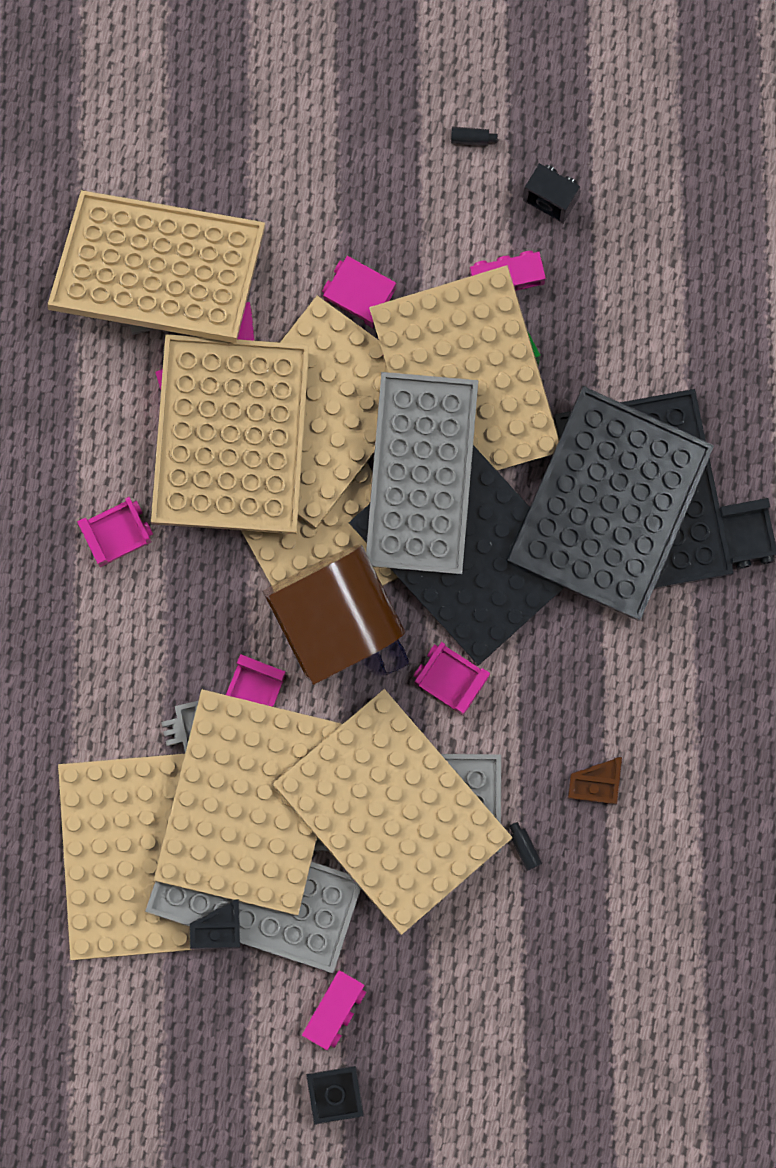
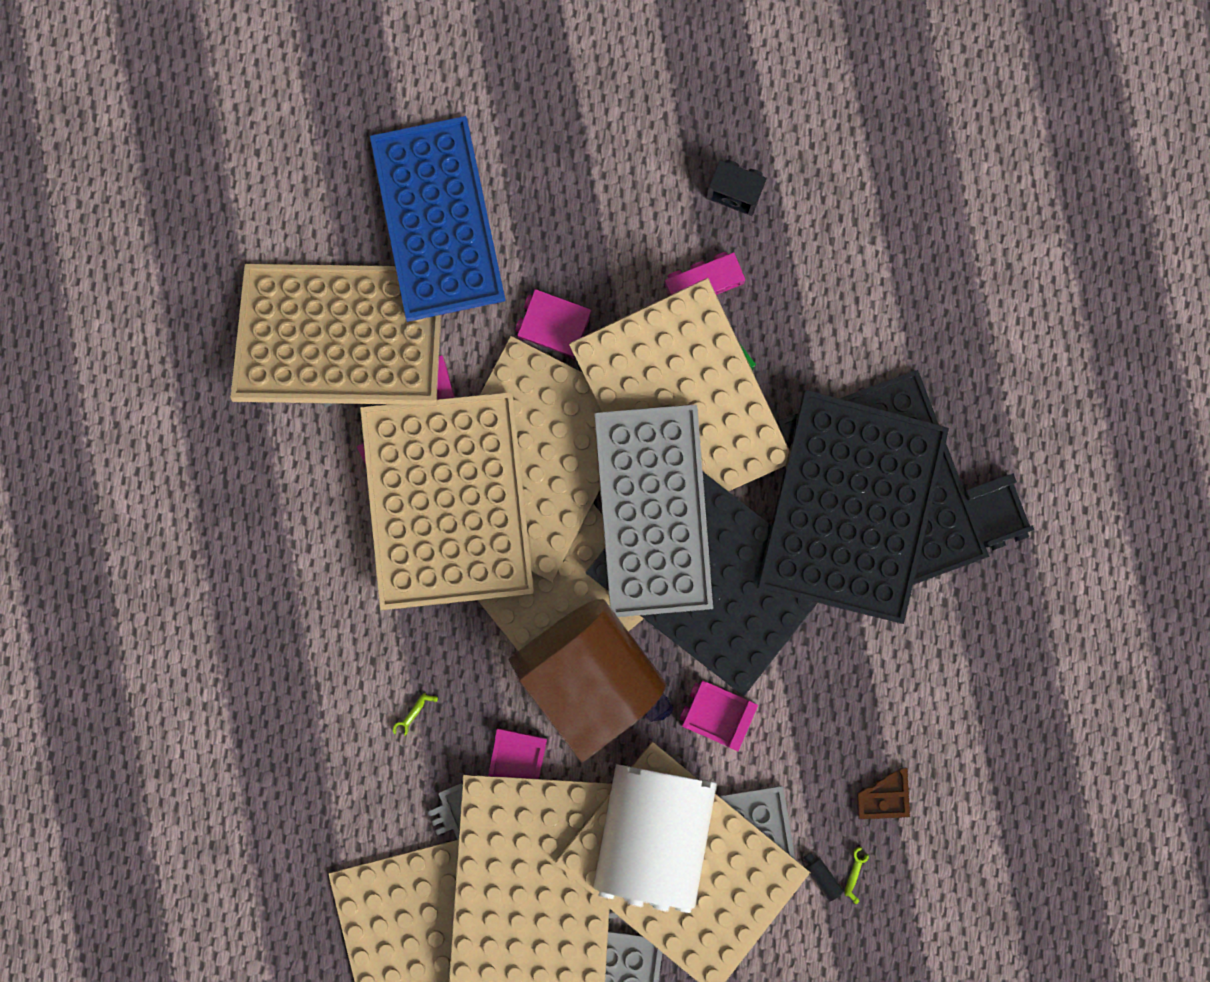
camera: 15 degrees left, 5 degrees up
(116, 532) = (344, 620): dark pink panel -> none
(165, 628) = (414, 712): none -> lime piece
(267, 176) = (437, 219): none -> blue plate
(371, 773) = (654, 838): none -> white cylinder
(472, 136) = (643, 139): black cylinder -> none
(554, 852) = (854, 875): none -> lime piece

